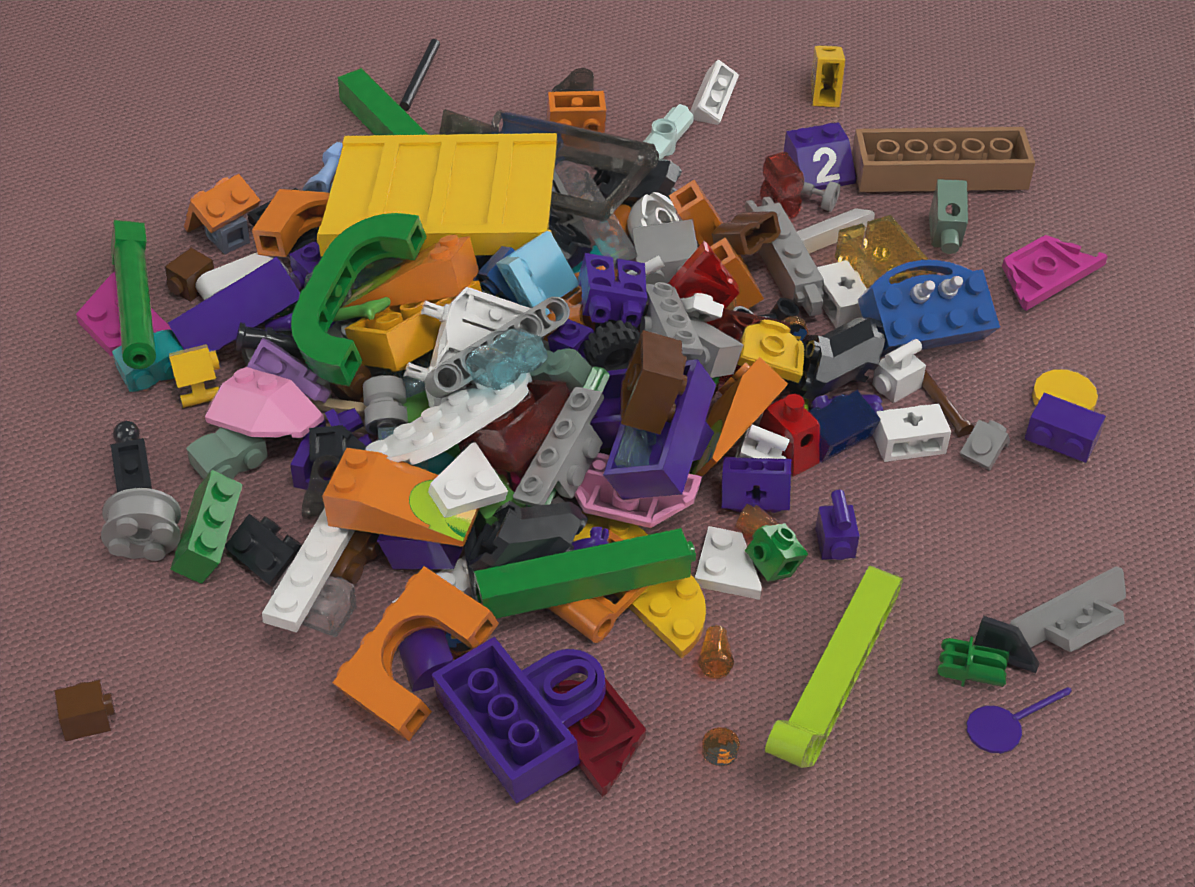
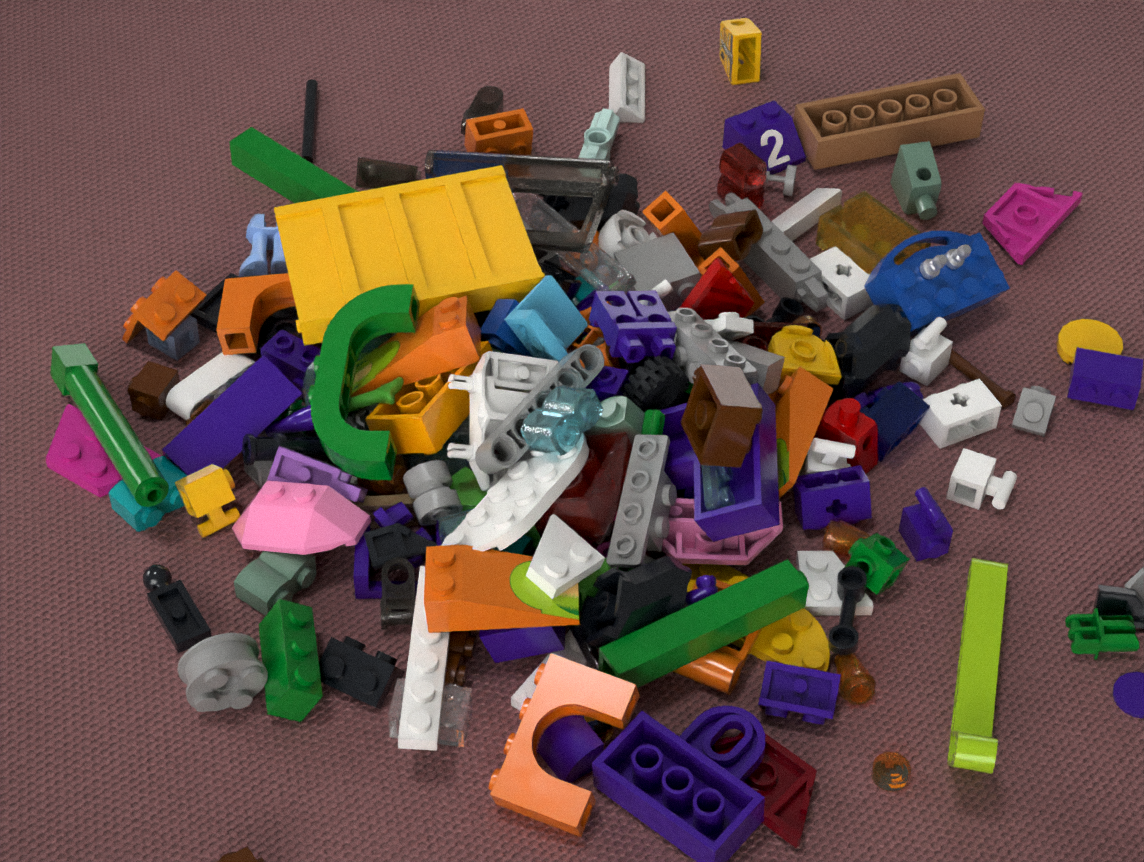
camera: 15 degrees left, 0 degrees up
(658, 653) = (799, 691): none -> dark purple bracket
(743, 570) = (851, 590): none -> black bar
(902, 494) = (974, 479): none -> white brick

